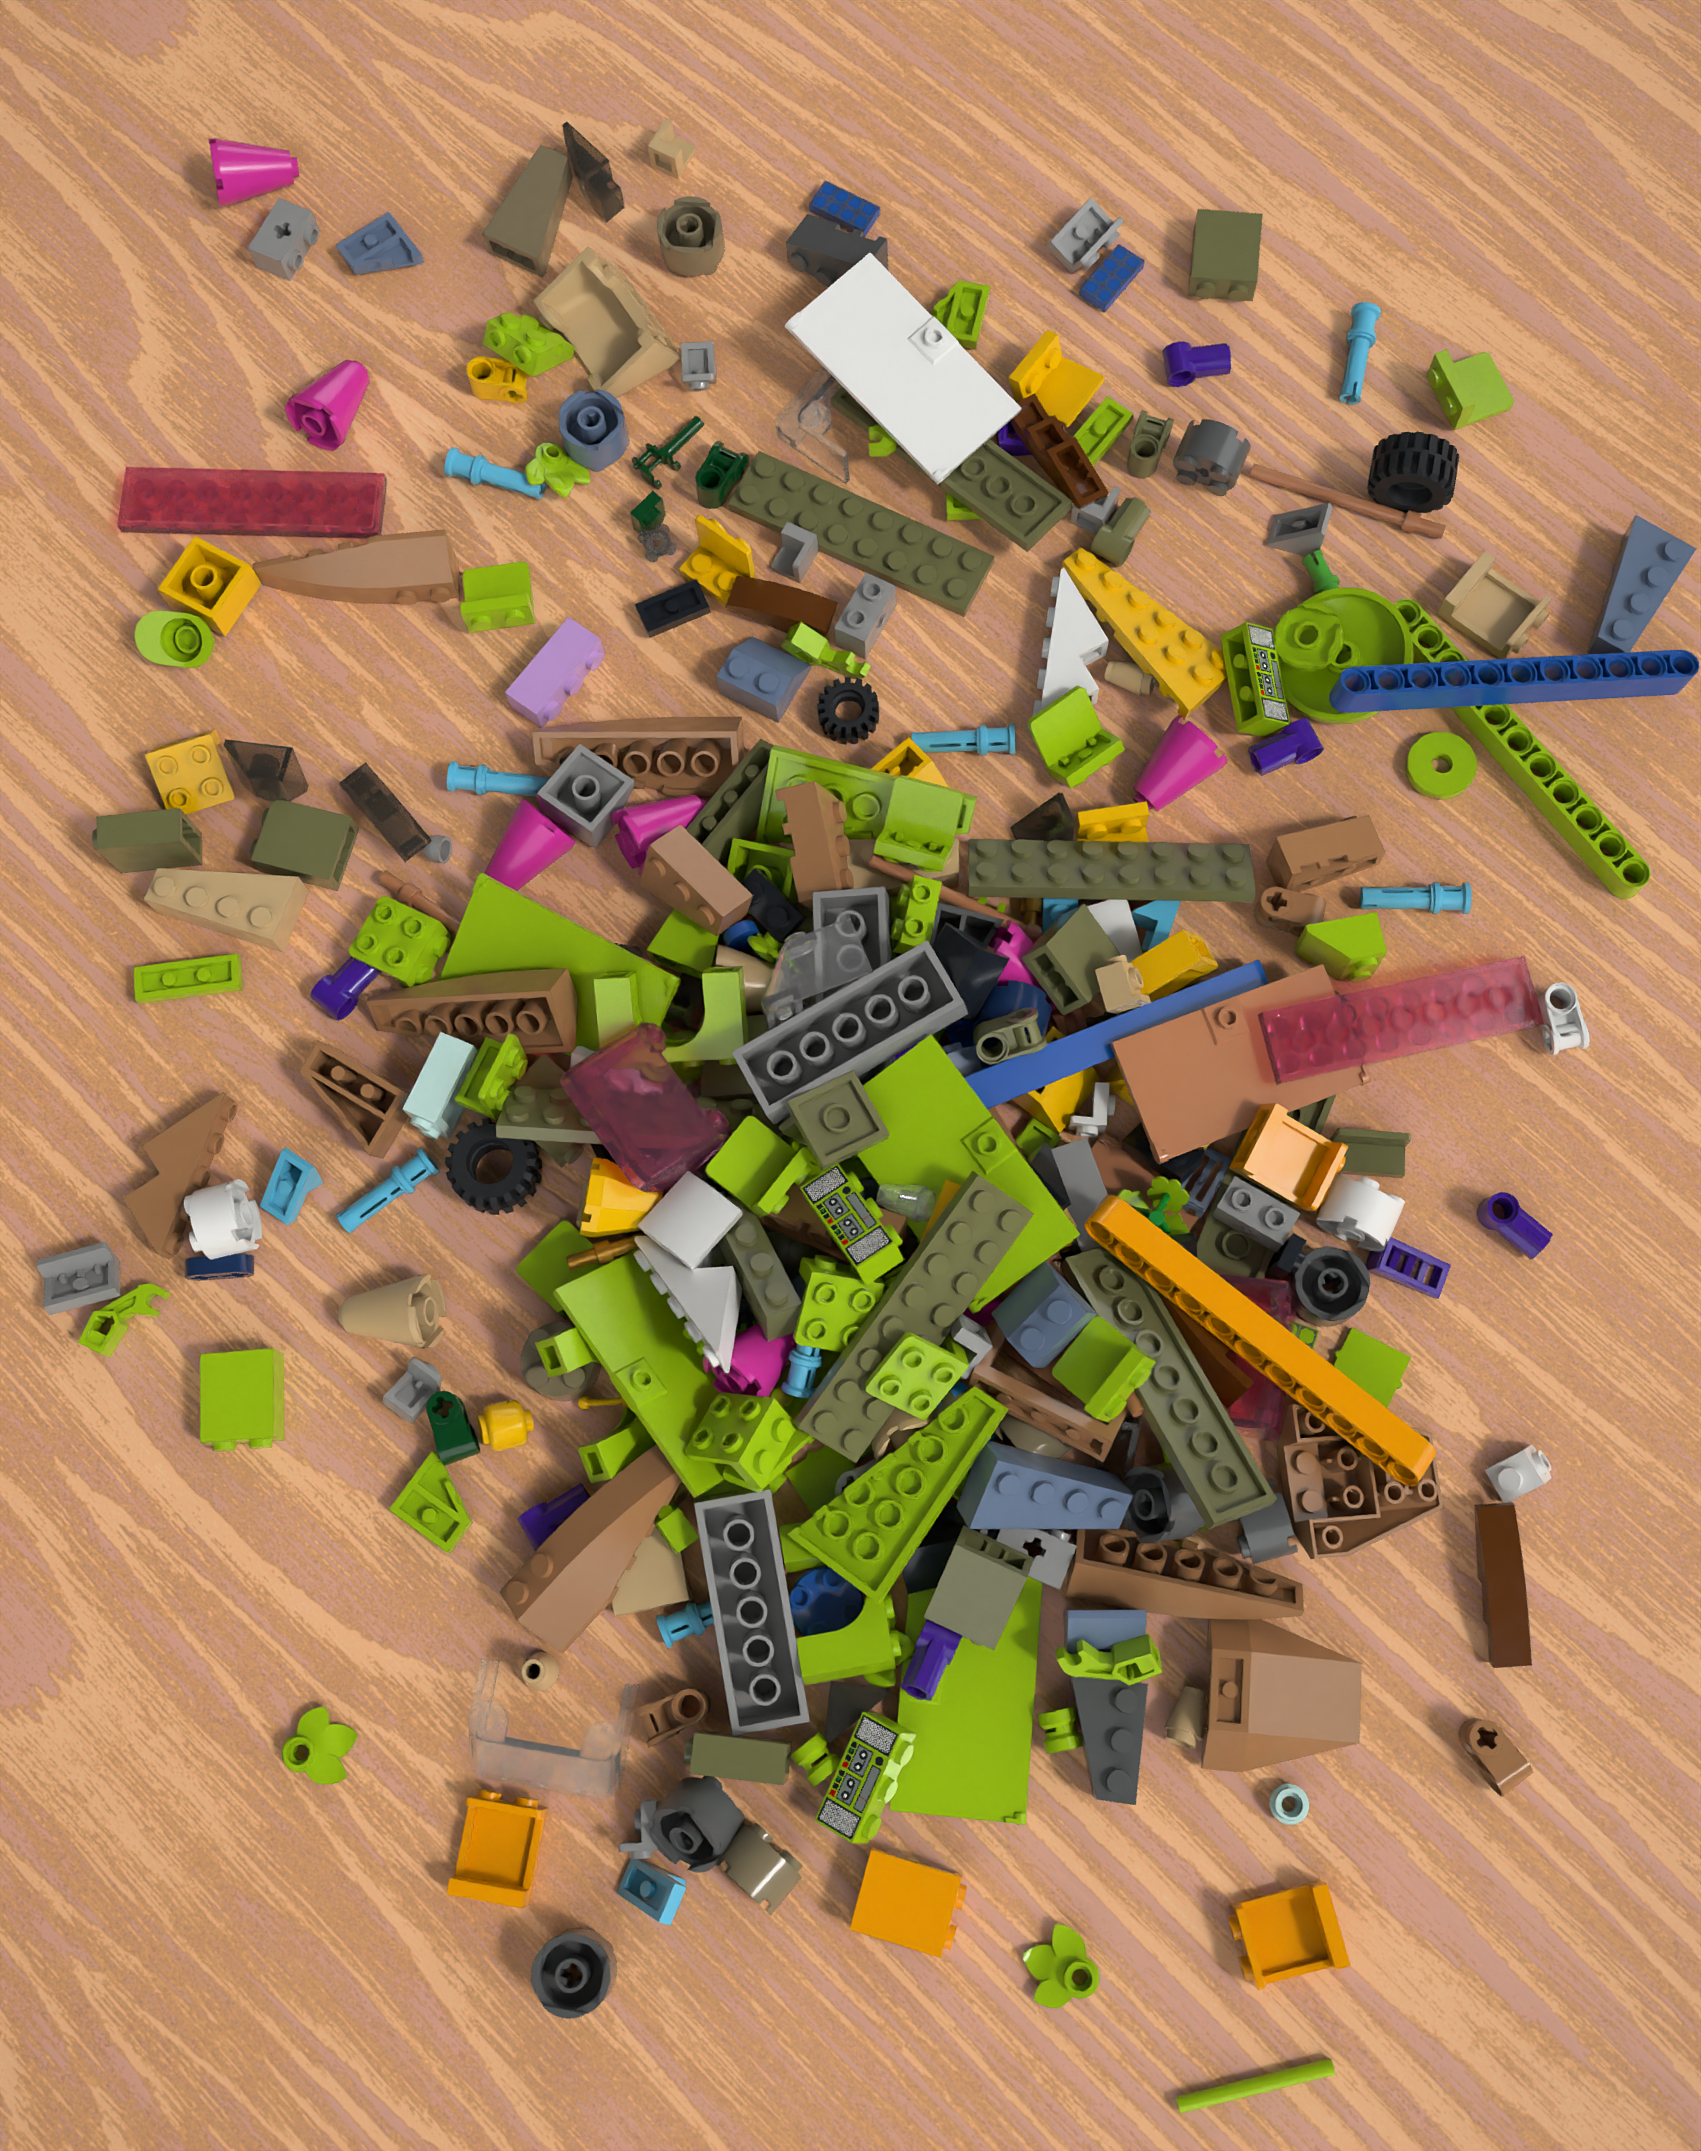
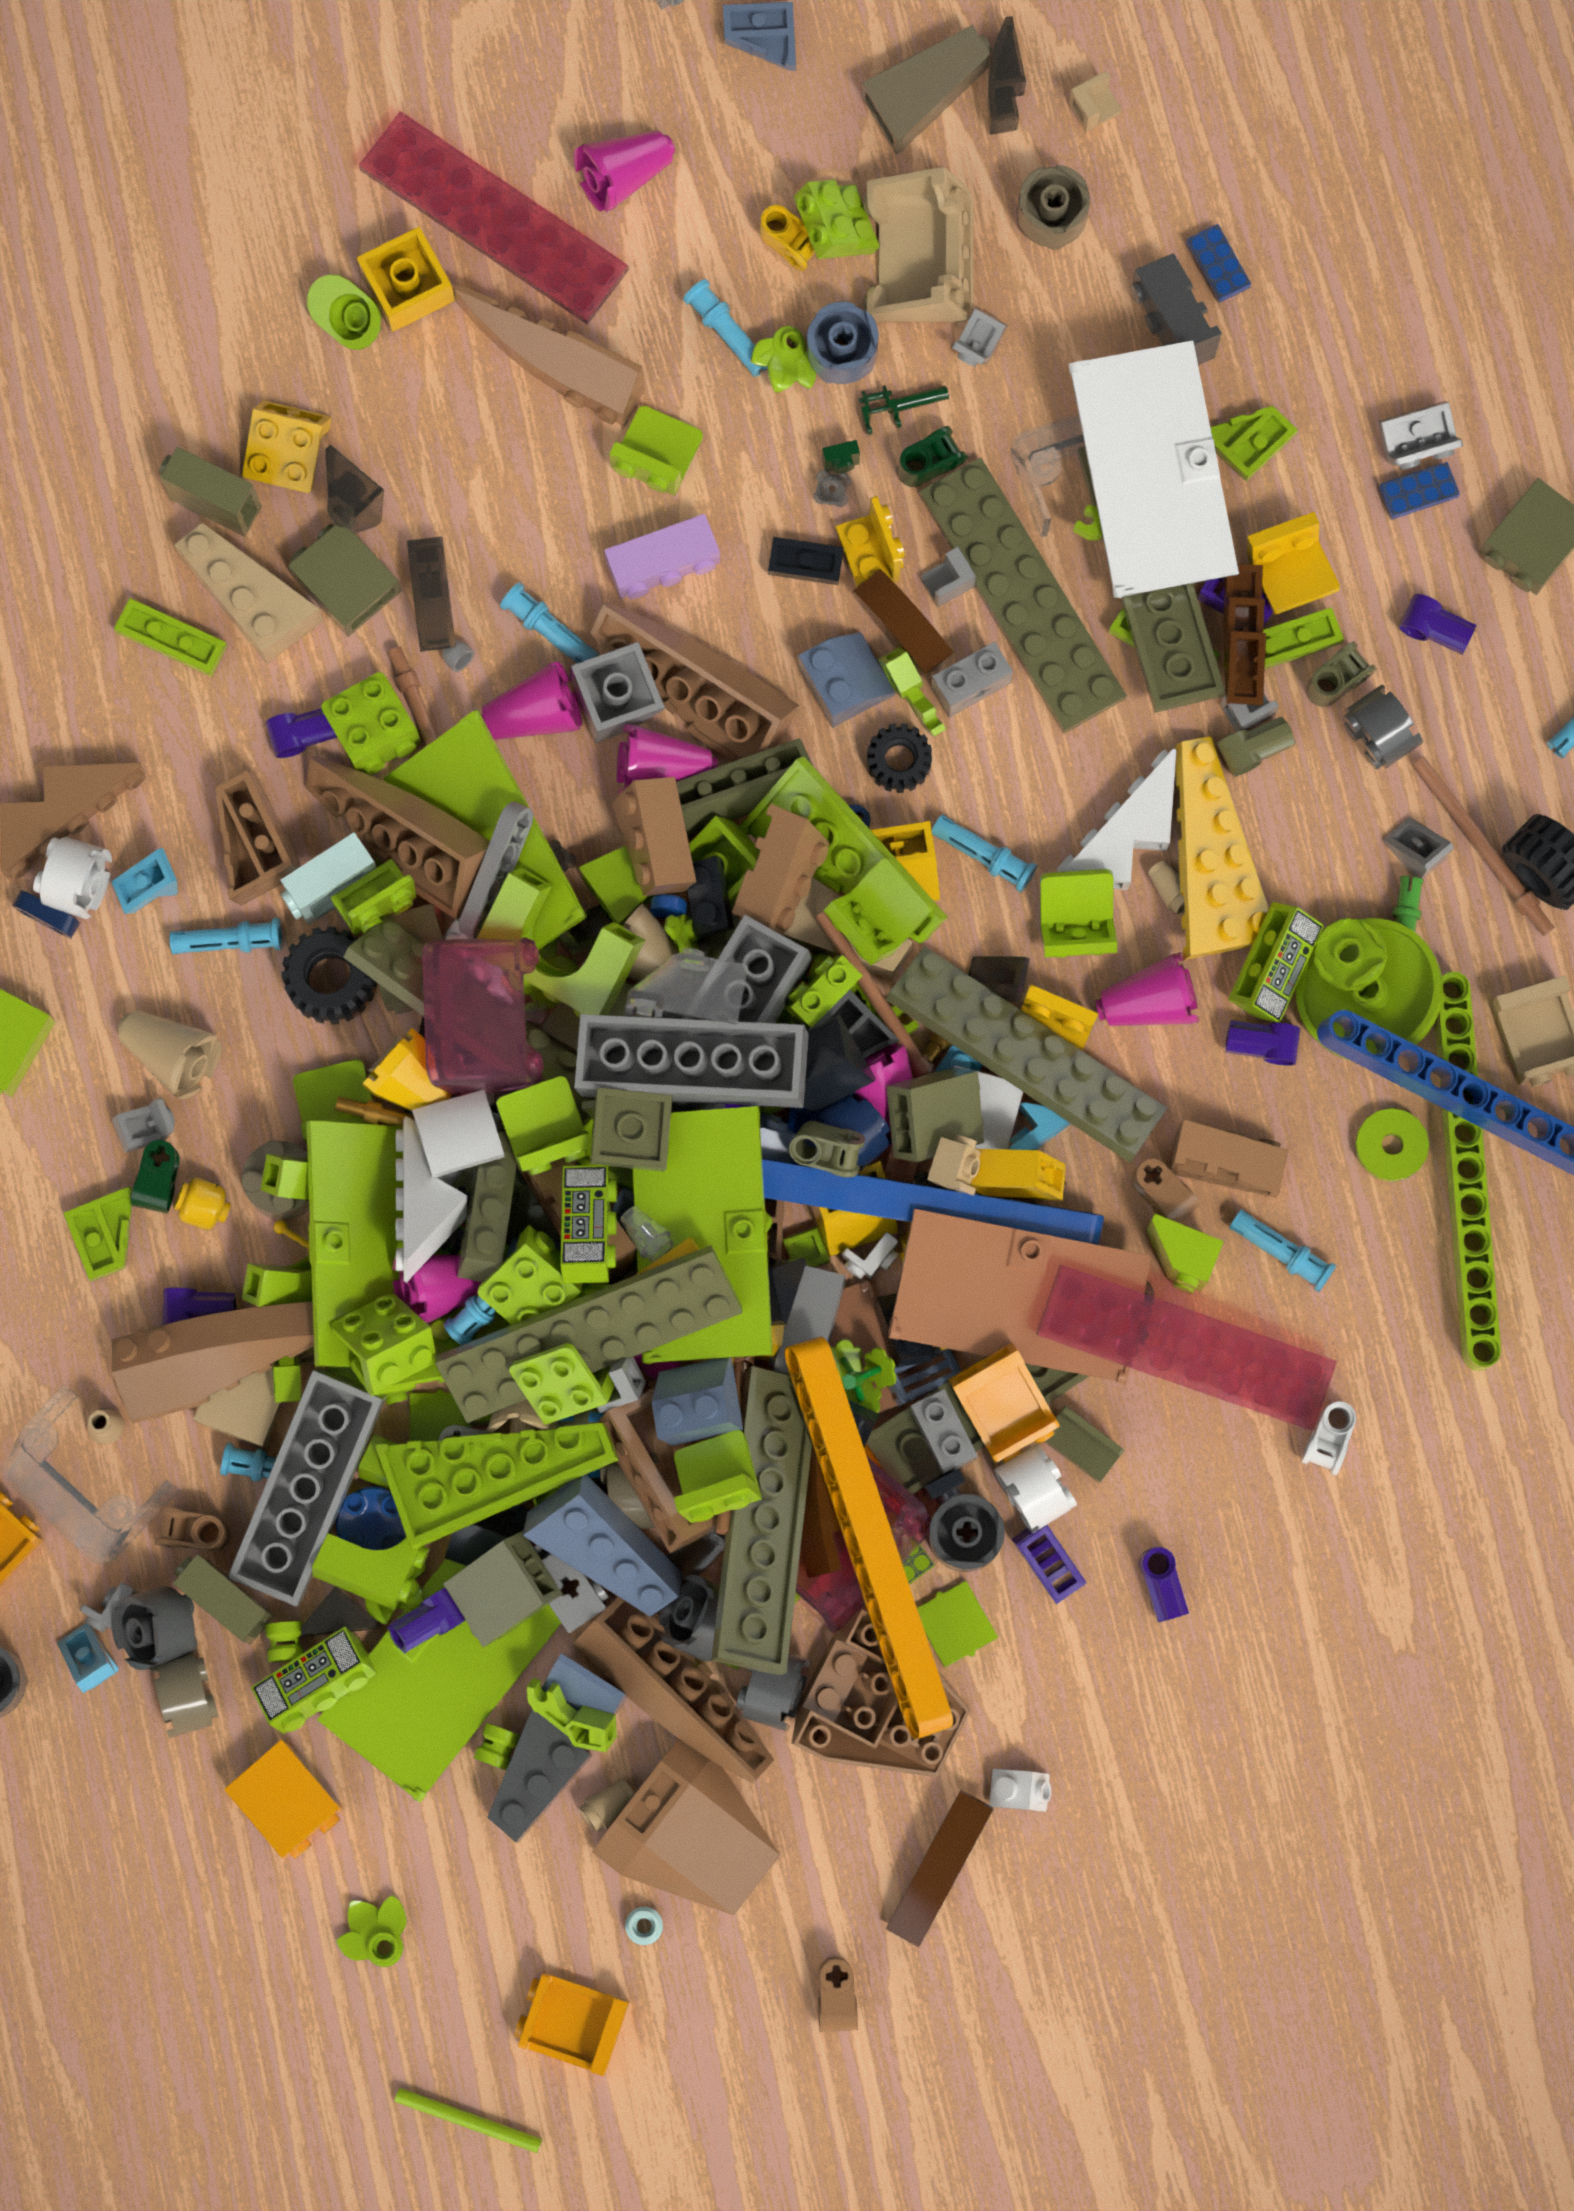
camera: 25 degrees right, 5 degrees up
(578, 985) = (497, 863): none -> light grey beam

